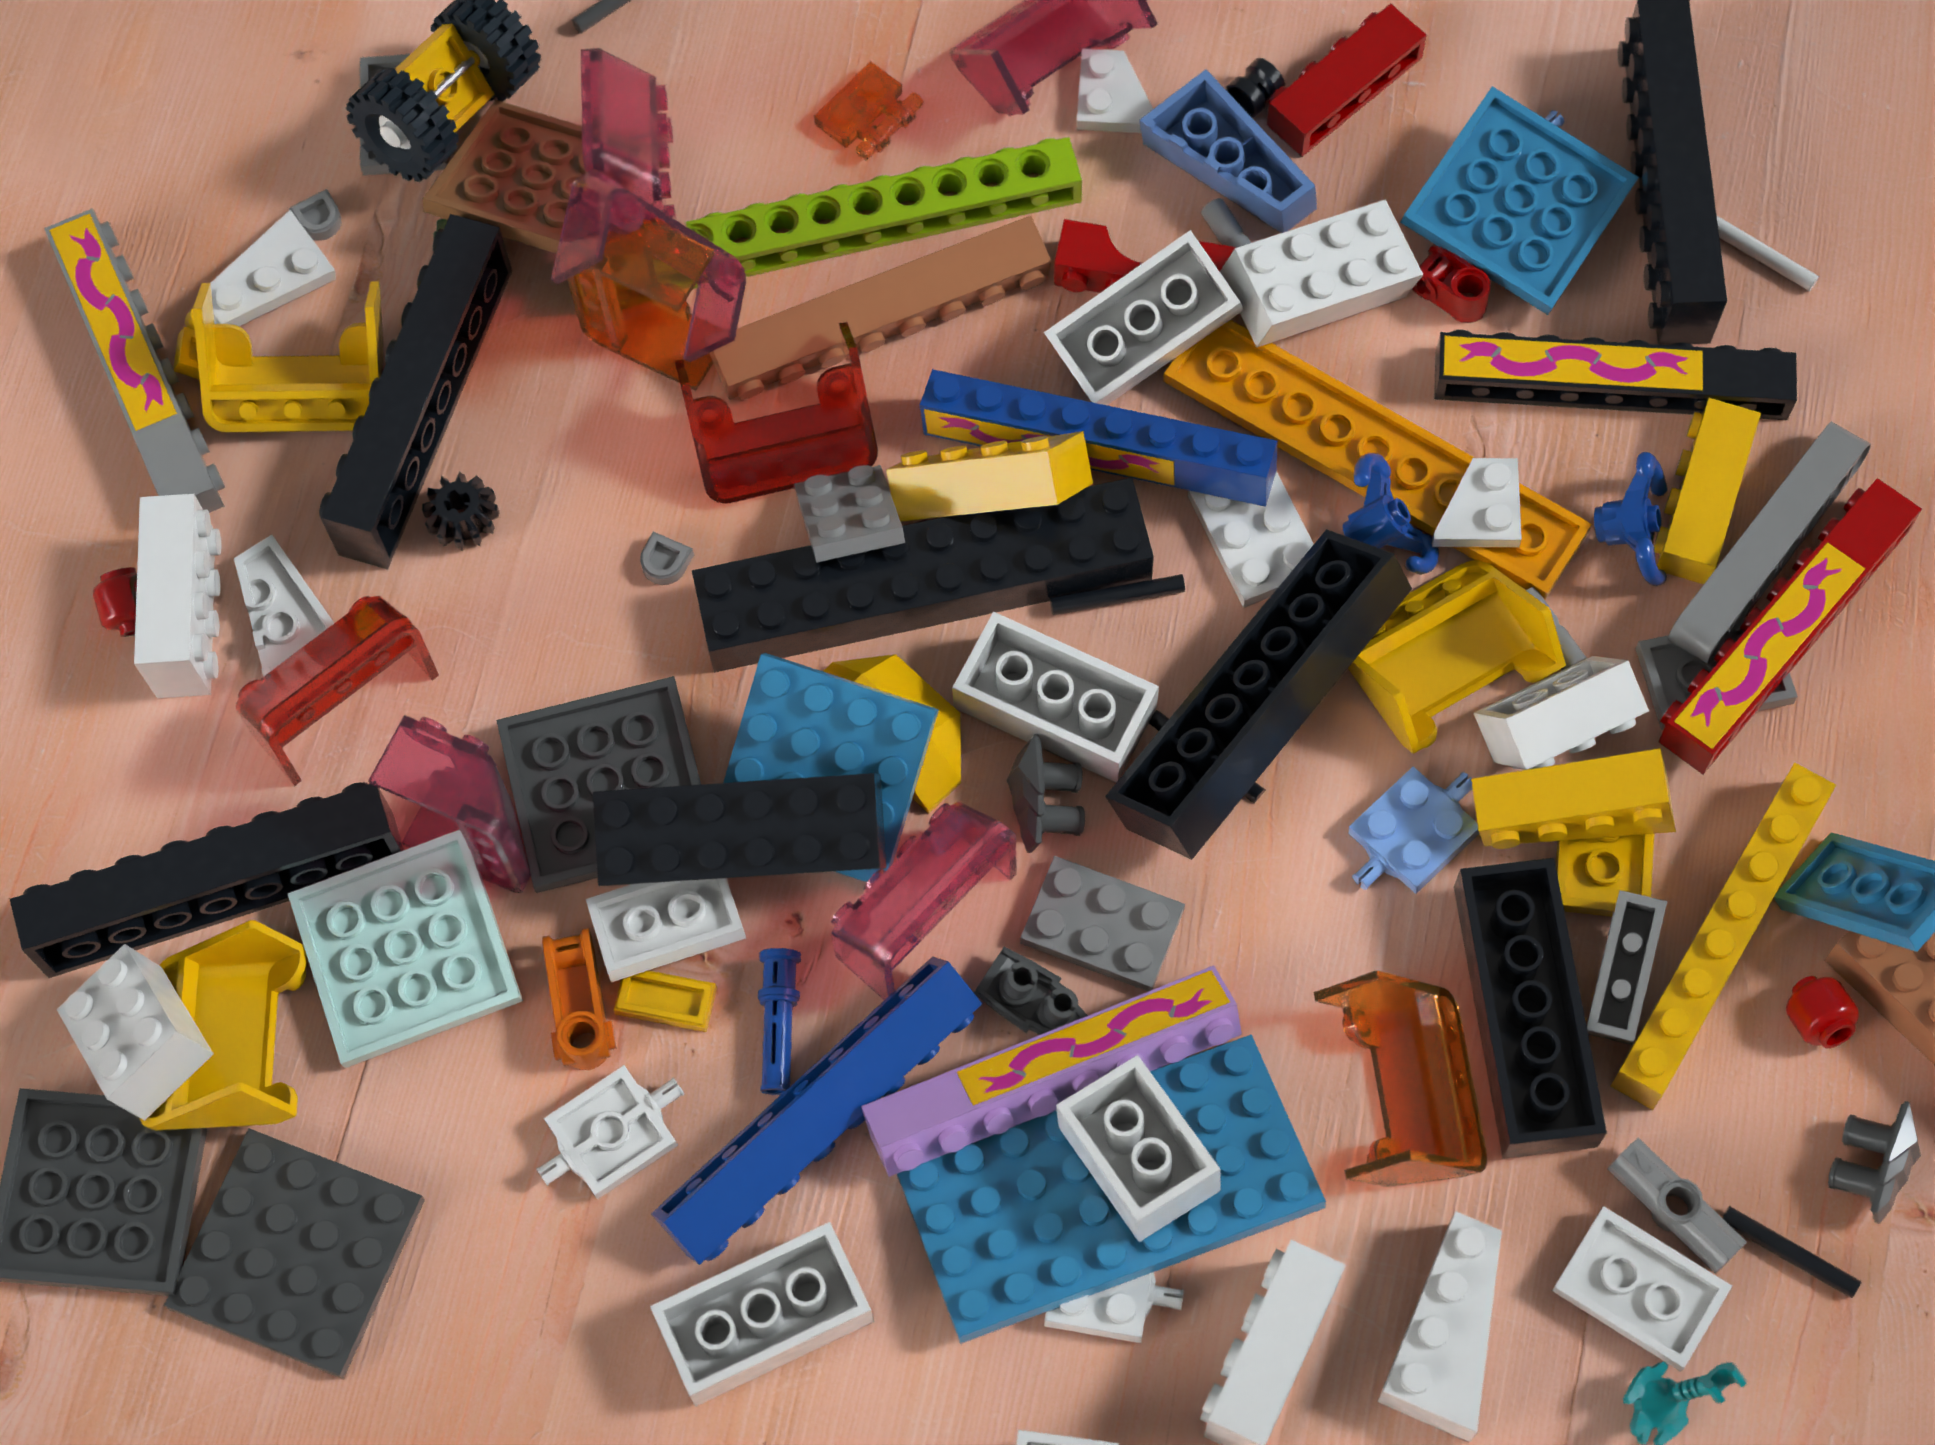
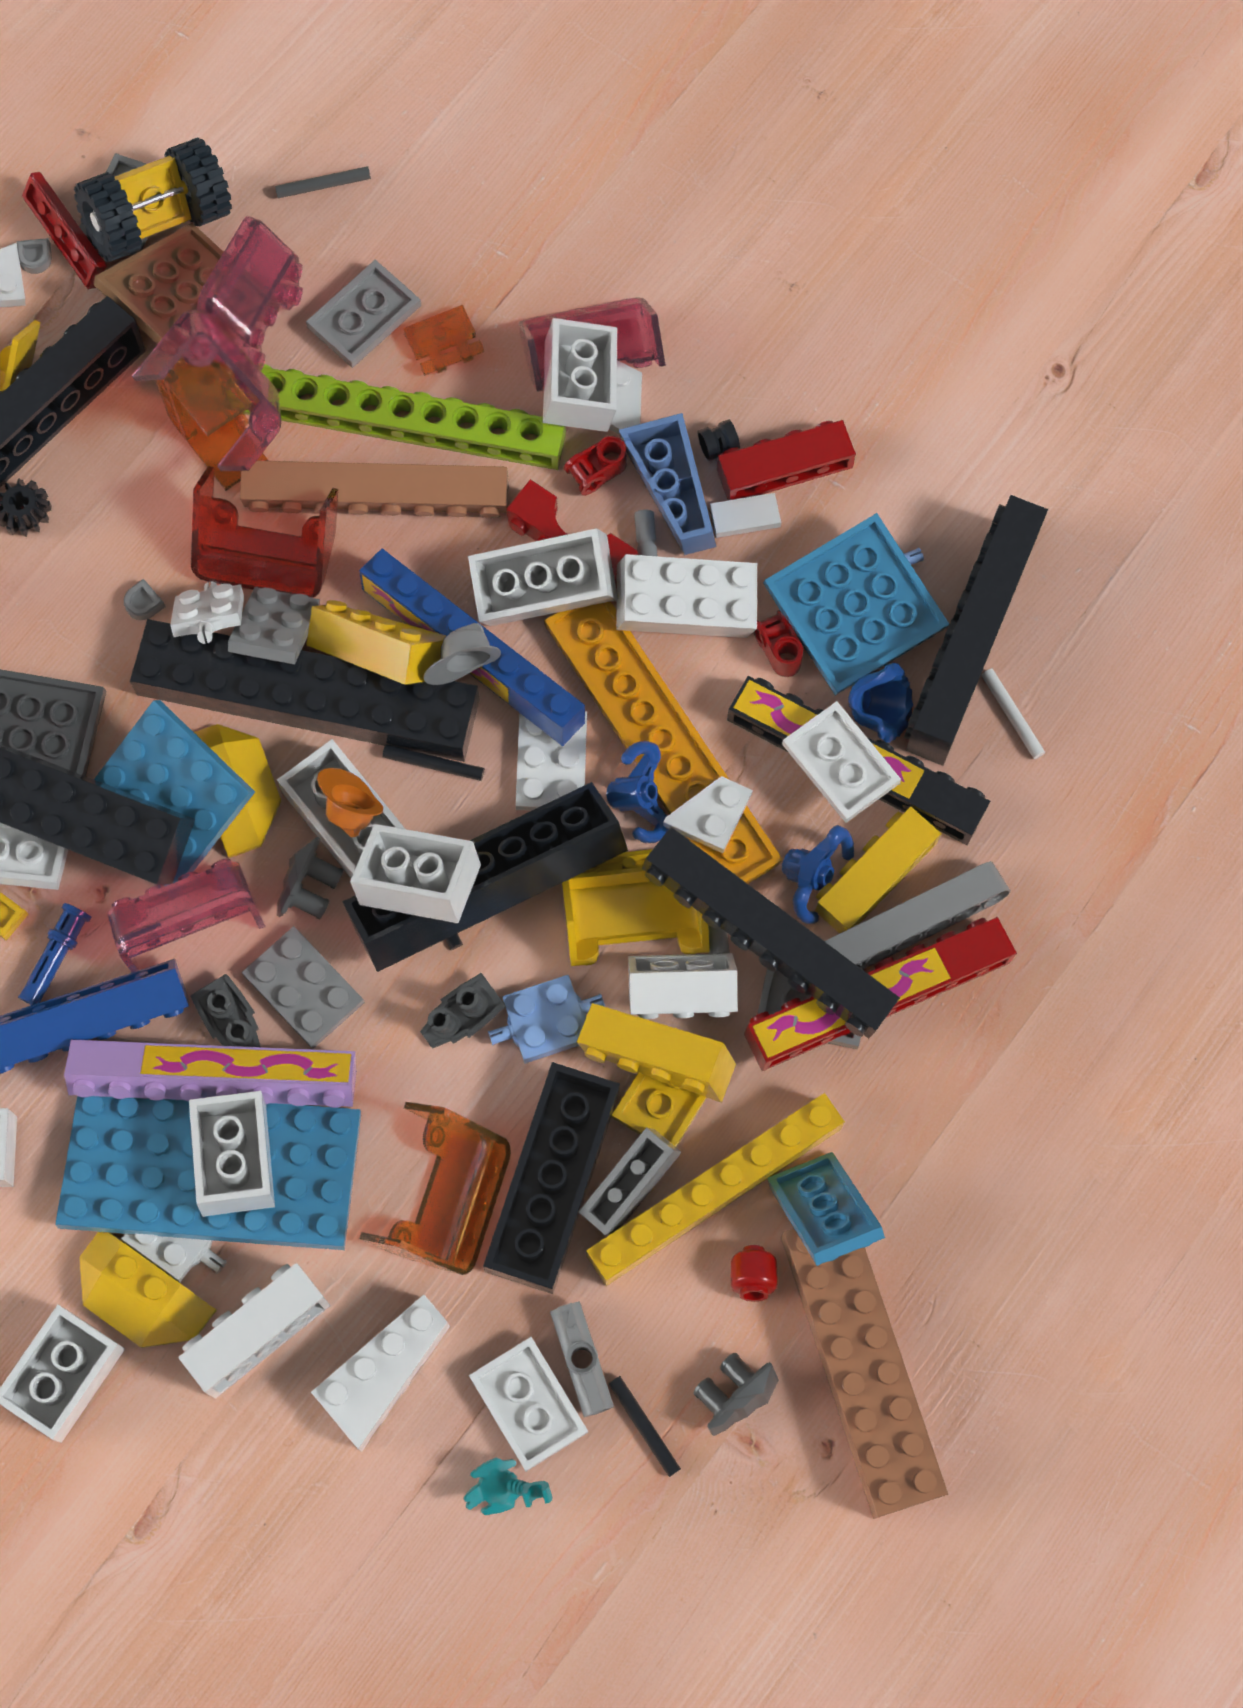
camera: 20 degrees right, 5 degrees up
(343, 171) = (63, 229): none -> red tile
(757, 119) = (363, 313): none -> light grey plate
(761, 528) = (207, 610): none -> white plate
(1059, 672) = (348, 800): none -> orange piece
(1065, 75) = (580, 375): none -> white brick
(1099, 1376) = (138, 1295): none -> yellow wedge
(1104, 439) = (461, 654): none -> light grey piece
(1125, 178) = (593, 469): none -> red piece
(1191, 714) = (415, 873): none -> white brick
(1311, 866) = (462, 1012): none -> dark grey connector
(1335, 156) = (745, 515): none -> white tile
(1606, 379) = (841, 761): none -> white plate
(1608, 296) = (883, 702): none -> blue hair
(1641, 602) = (769, 933): none -> black brick

